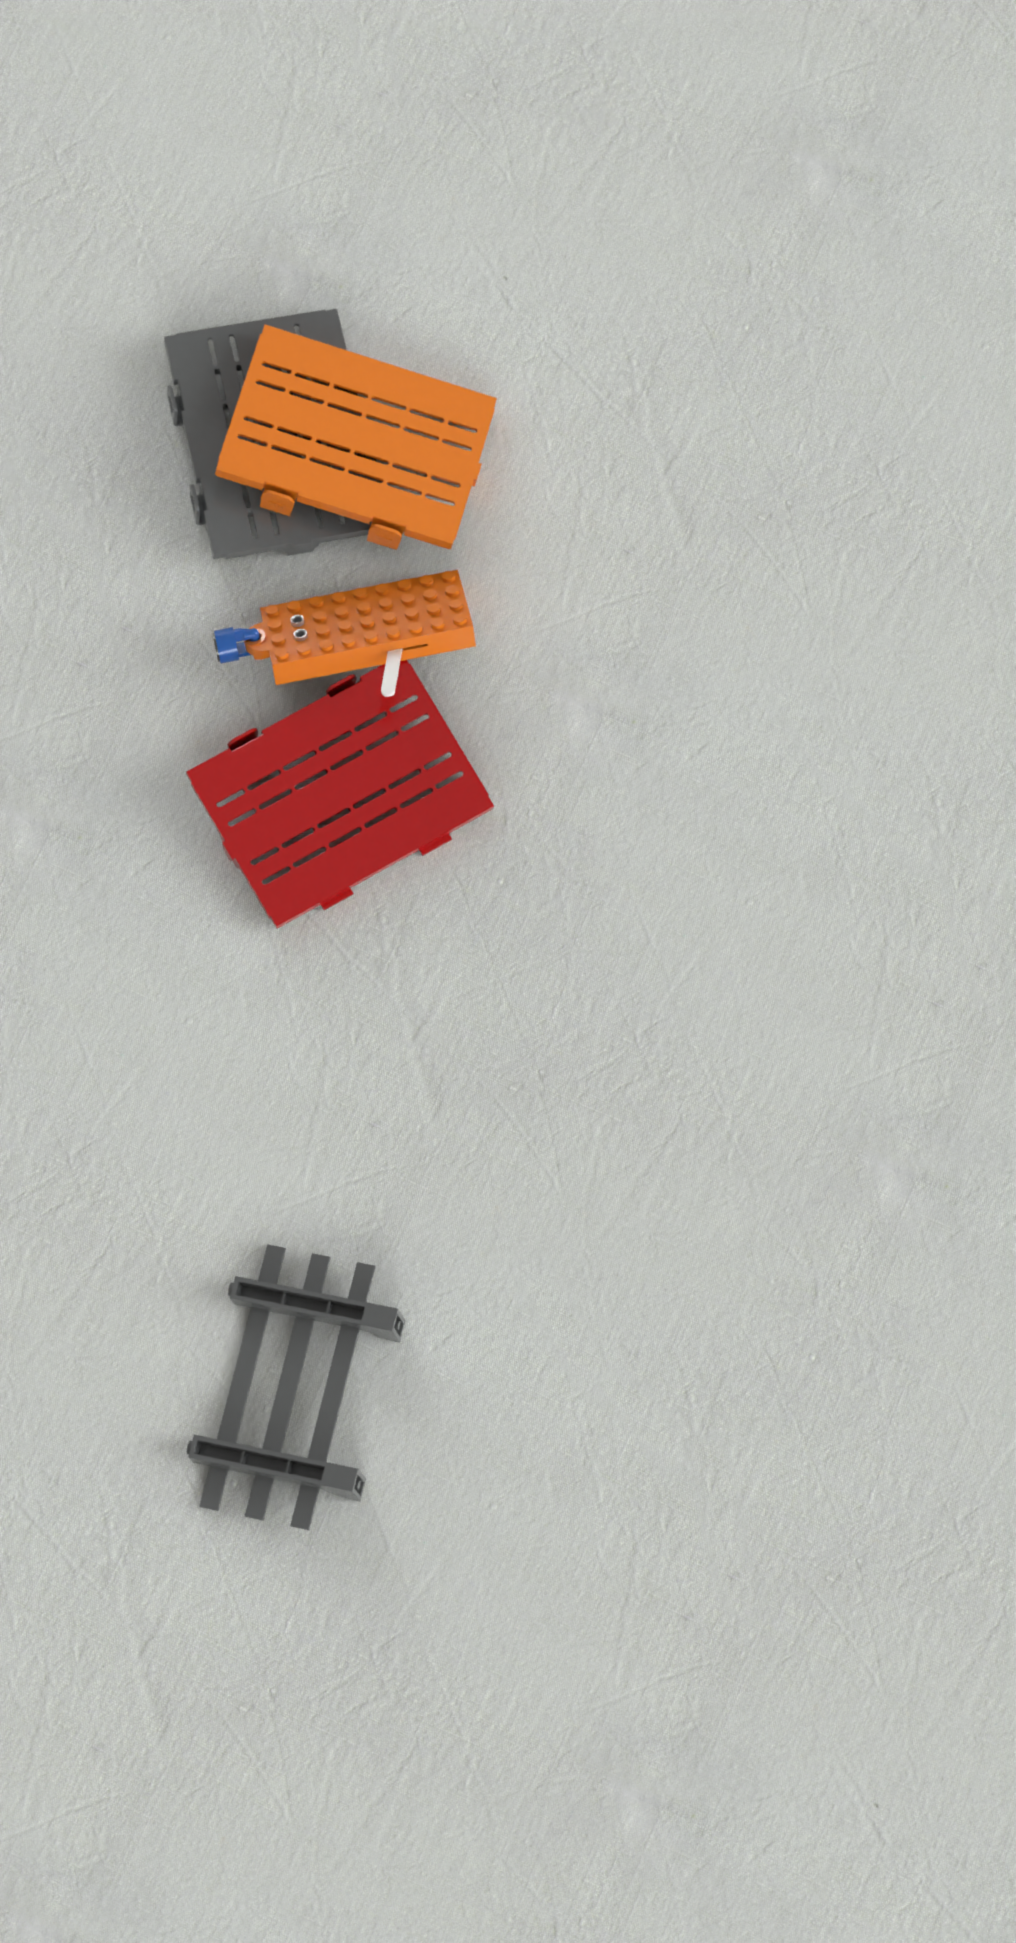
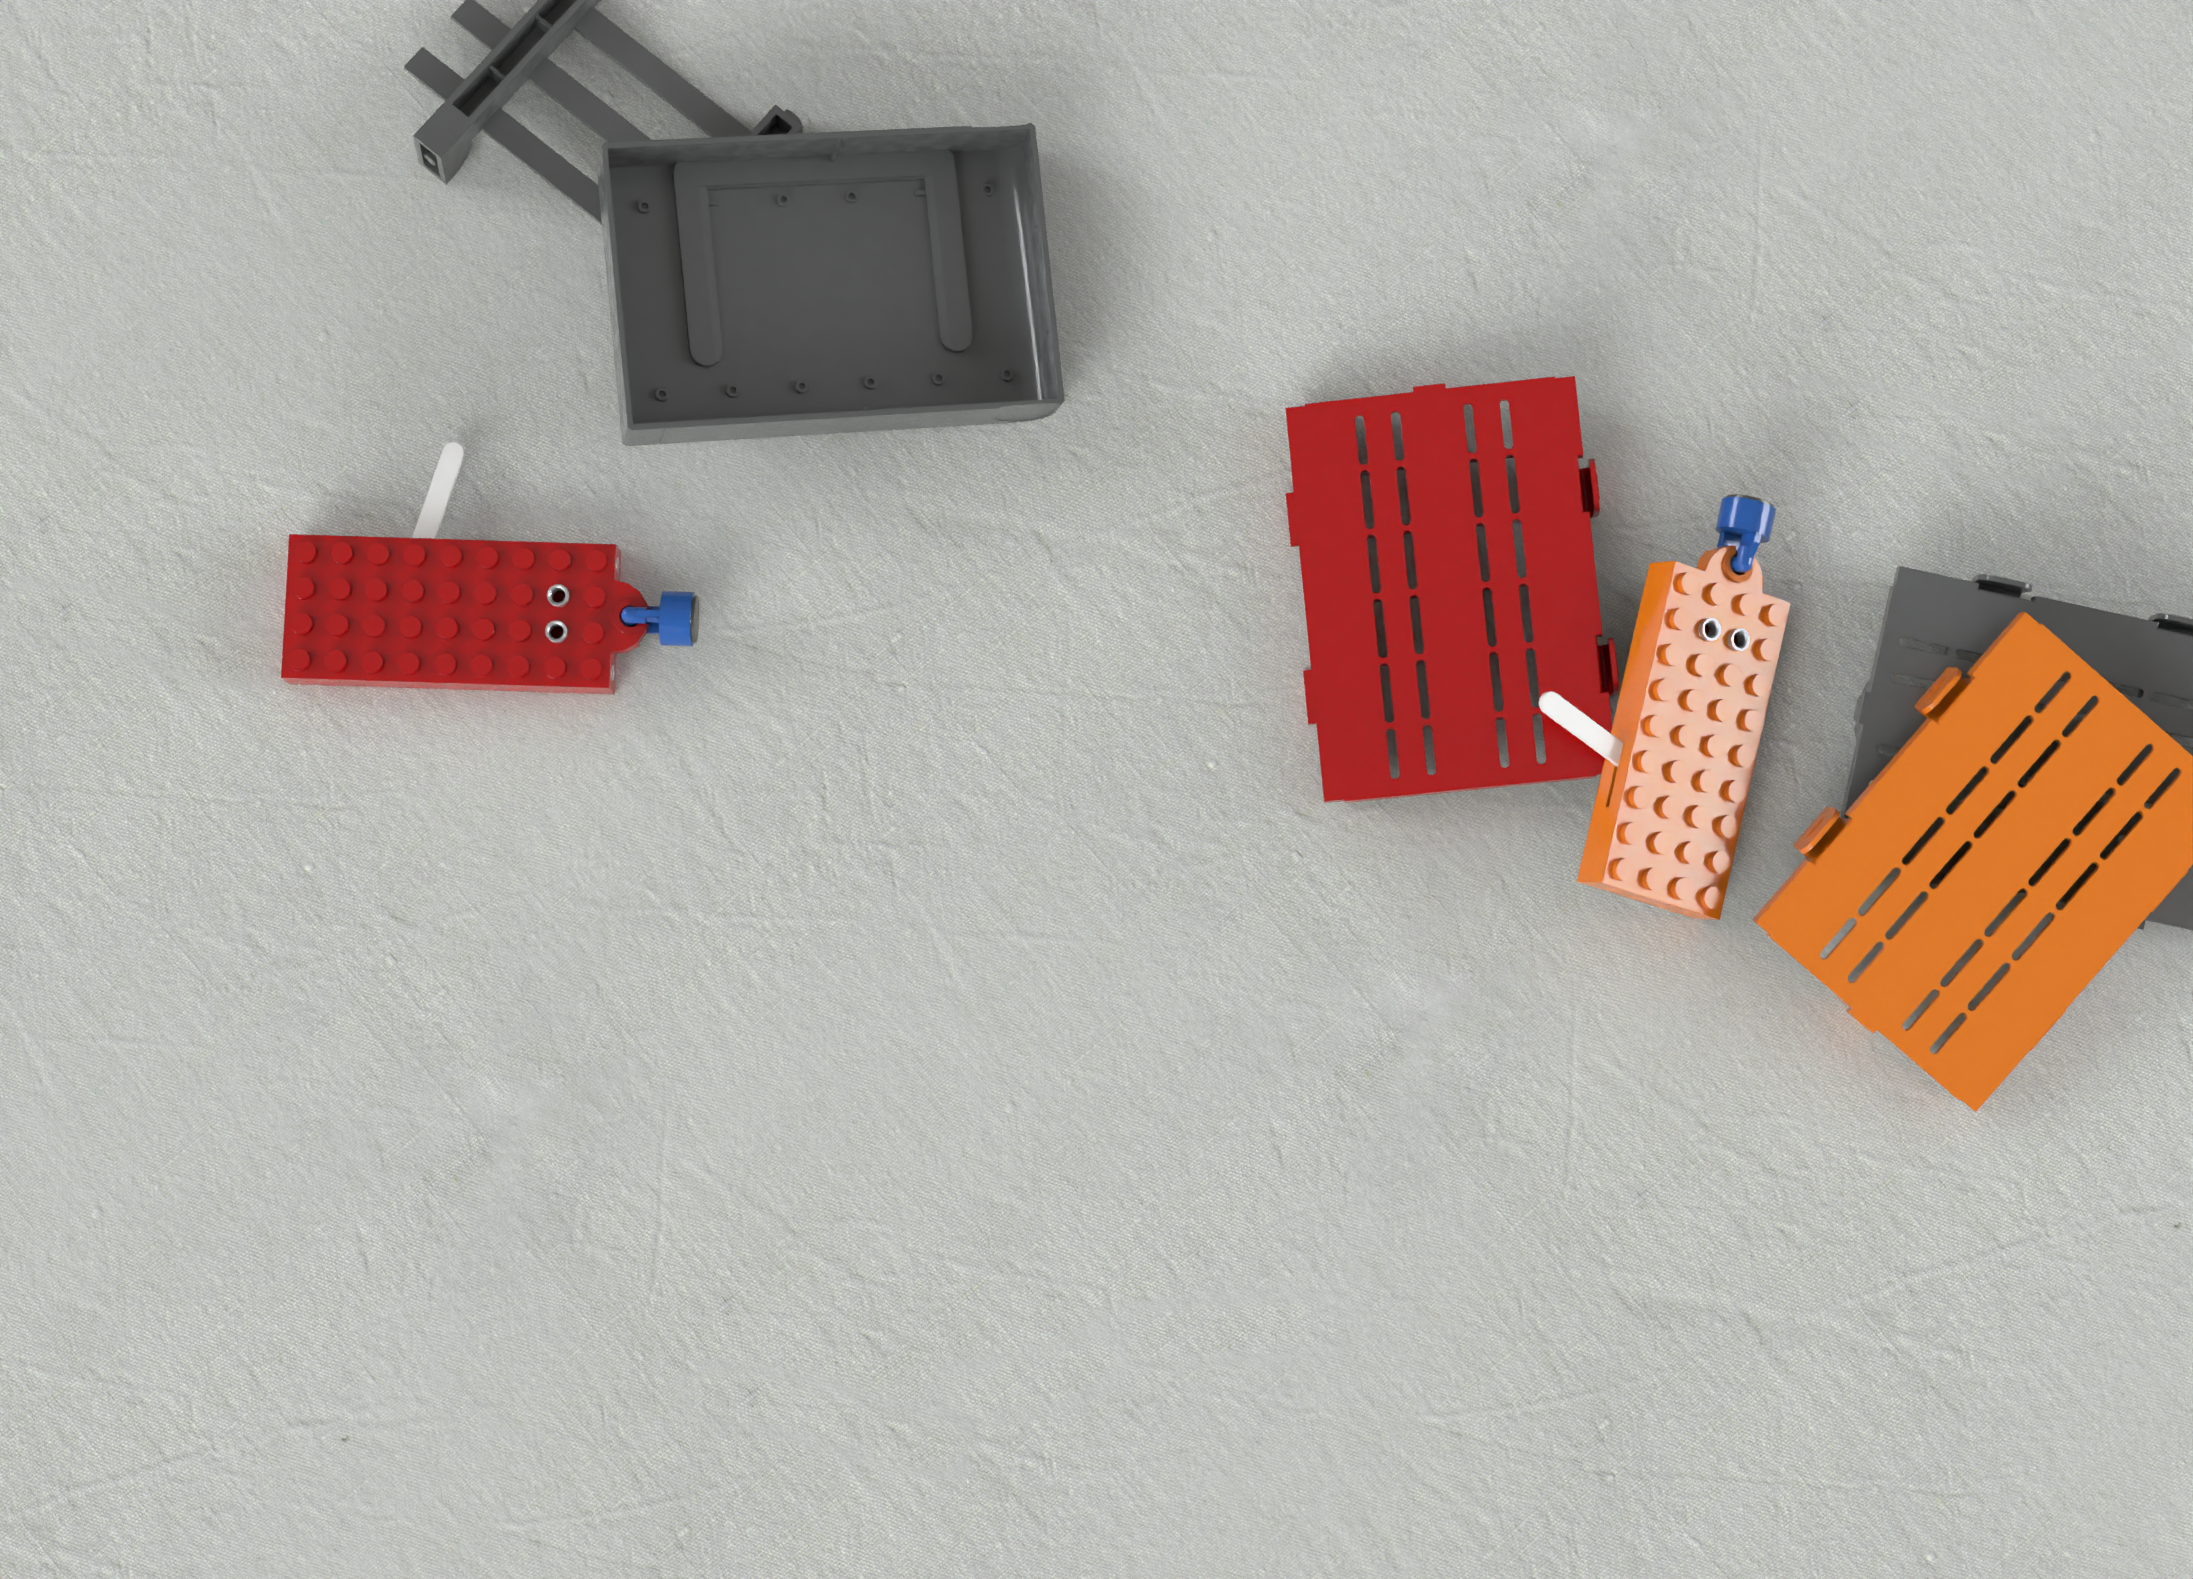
camera: 115 degrees right, 10 degrees up
(329, 1207) = (828, 283): none -> dark grey piece
(618, 1334) = (466, 609): none -> red piece

